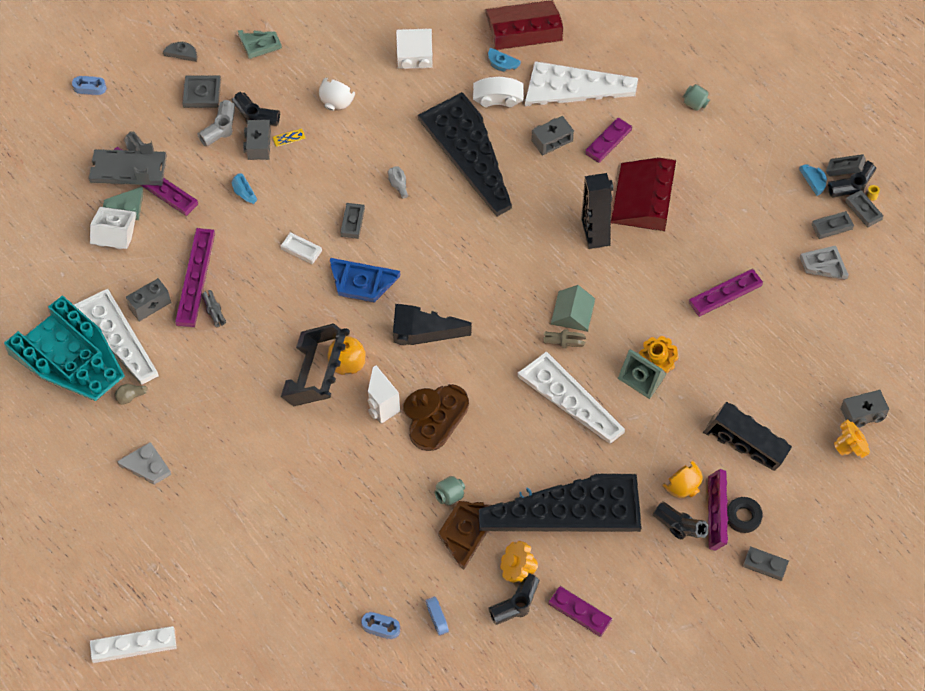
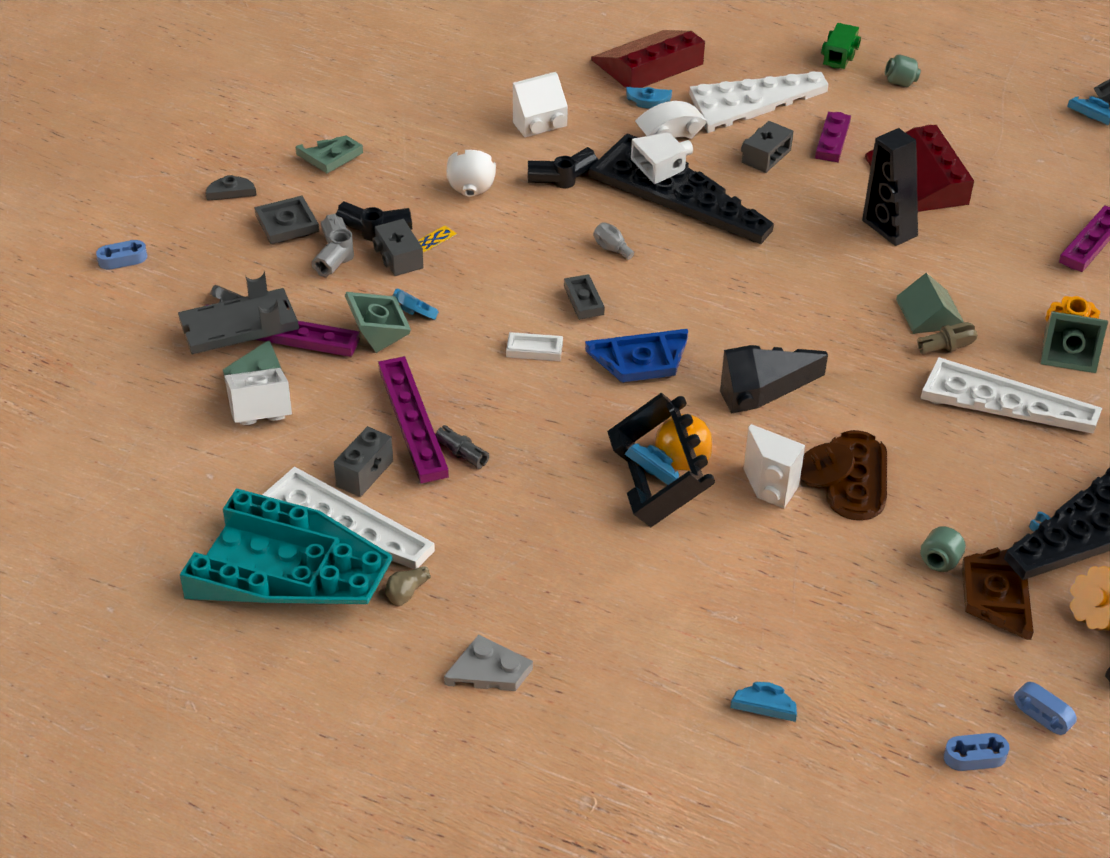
camera: 25 degrees left, 15 degrees down
(211, 194) = (378, 318): none -> sand green slope
(283, 546) = (766, 700): none -> dark azure plate
(317, 361) = (654, 462): none -> dark azure plate
(400, 109) = (561, 170): none -> black piece
(467, 123) = (660, 155): none -> white torso
(665, 59) = (841, 46): none -> green brick

